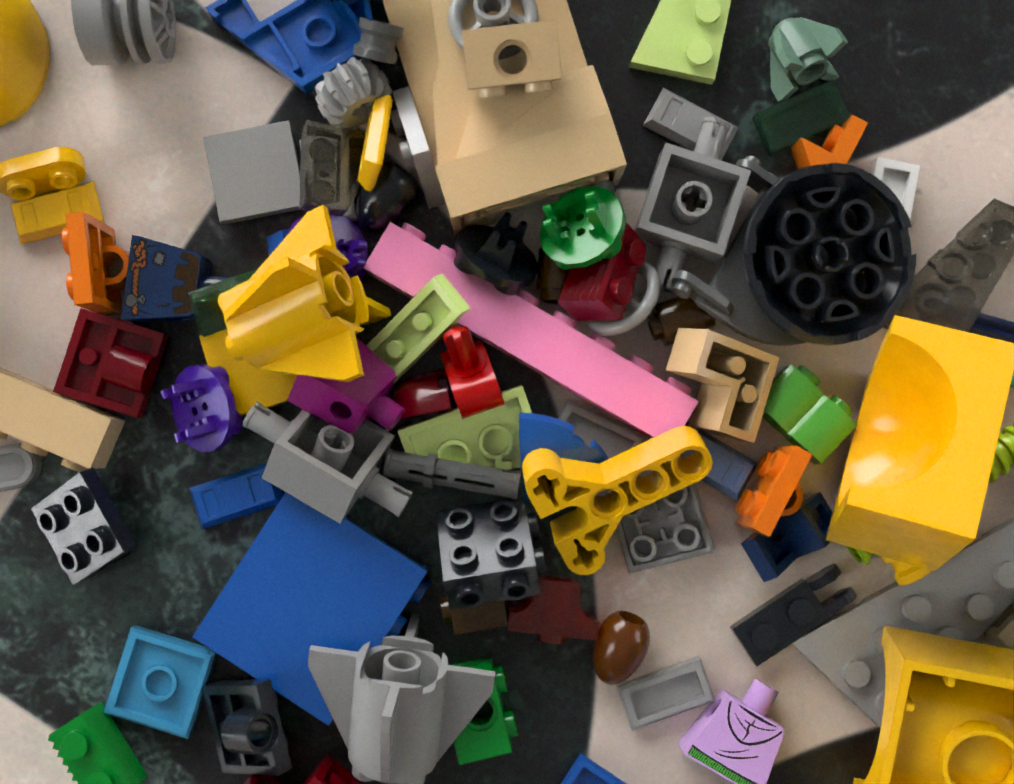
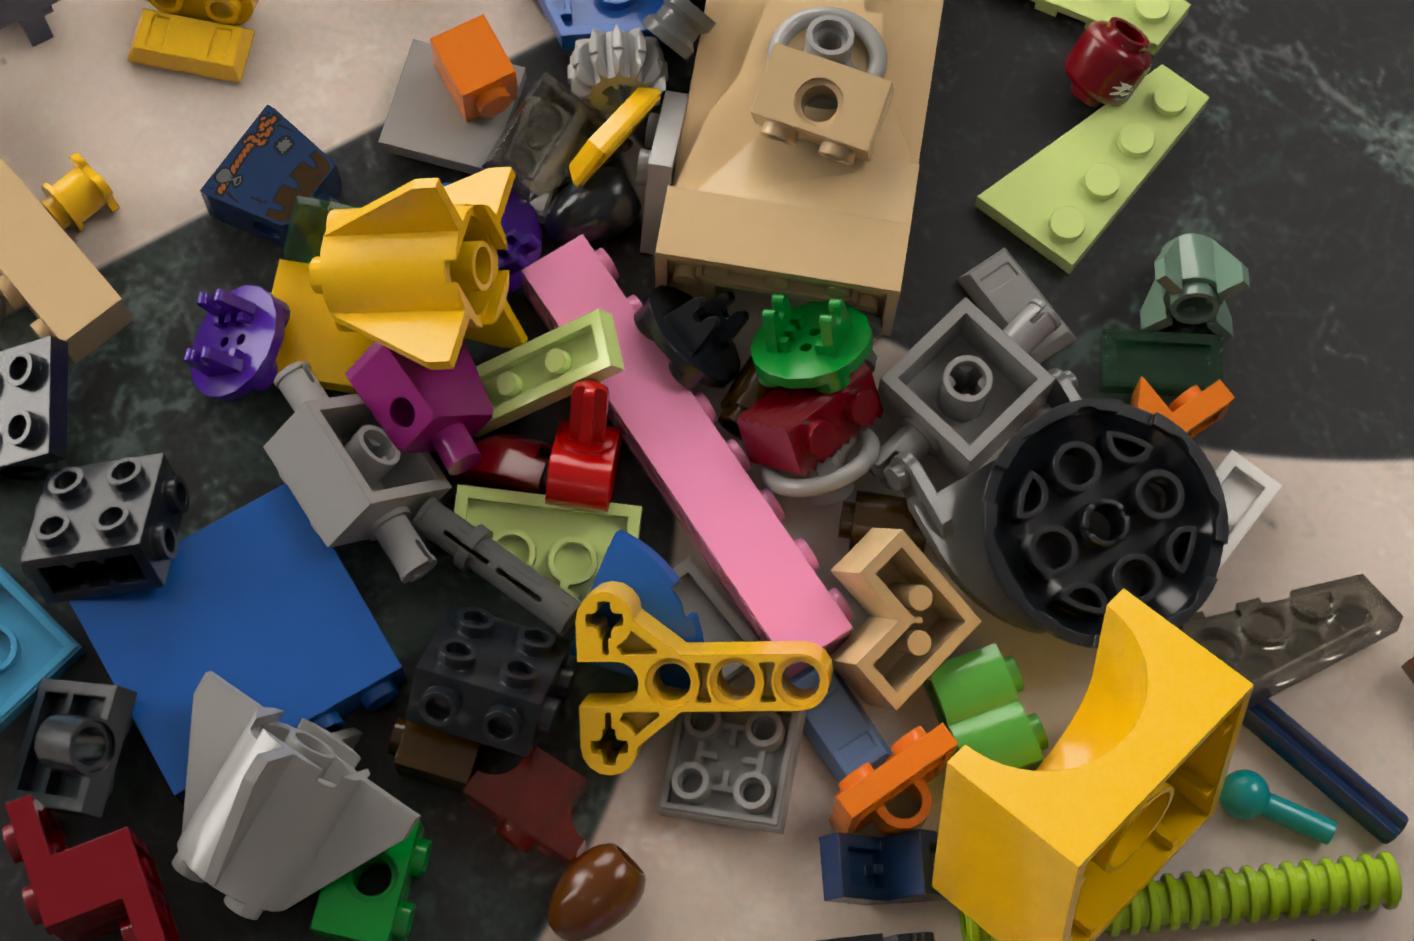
camera: 25 degrees right, 15 degrees down
(40, 359) = (78, 195): none -> yellow brick
(91, 252) = (206, 106): orange plate -> none
(111, 363) = (157, 242): dark red plate -> none
(188, 579) = (105, 528): none -> black brick
(234, 496) = (221, 471): blue tile -> none
(258, 140) = (475, 69): none -> orange brick

